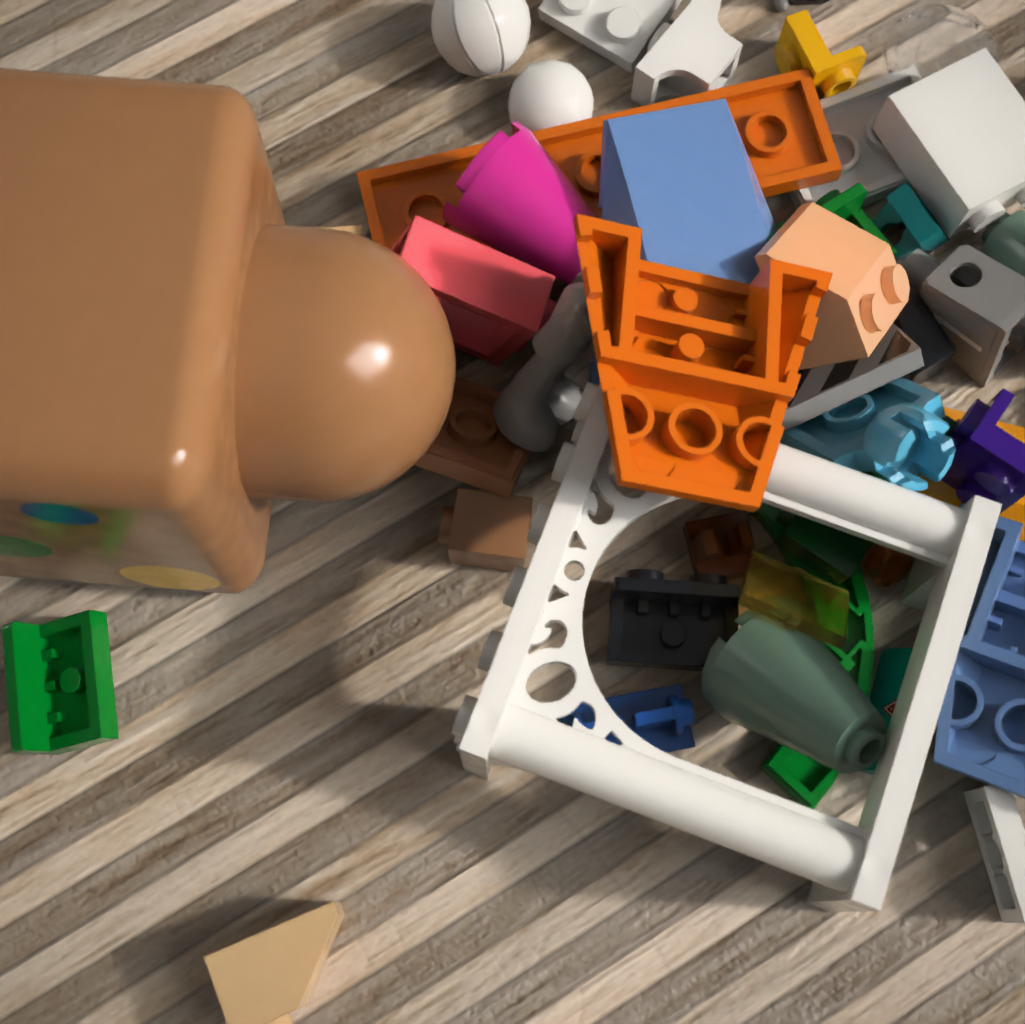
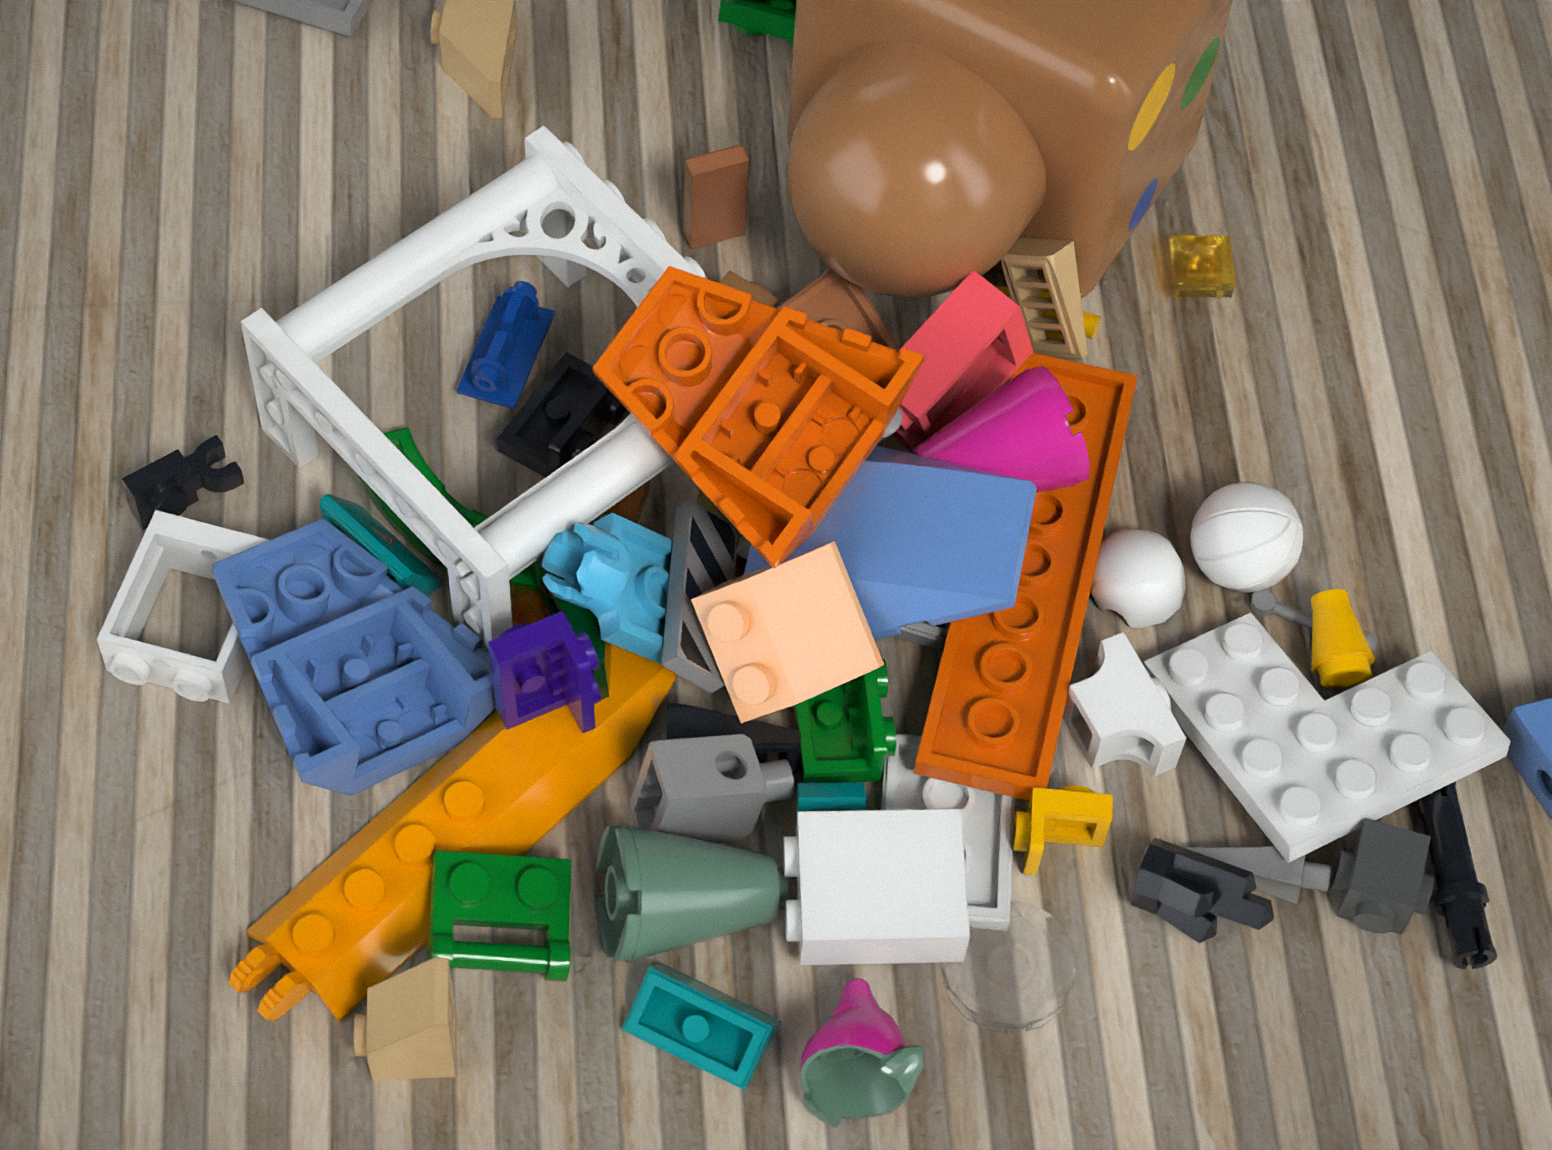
camera: 115 degrees right, 15 degrees down
(367, 604) = (715, 196): none -> nougat tile
(793, 694) = (455, 432): sand green cone -> none
(795, 599) = (513, 462): clear yellow piece -> none
(968, 942) = (173, 481): none -> black plate

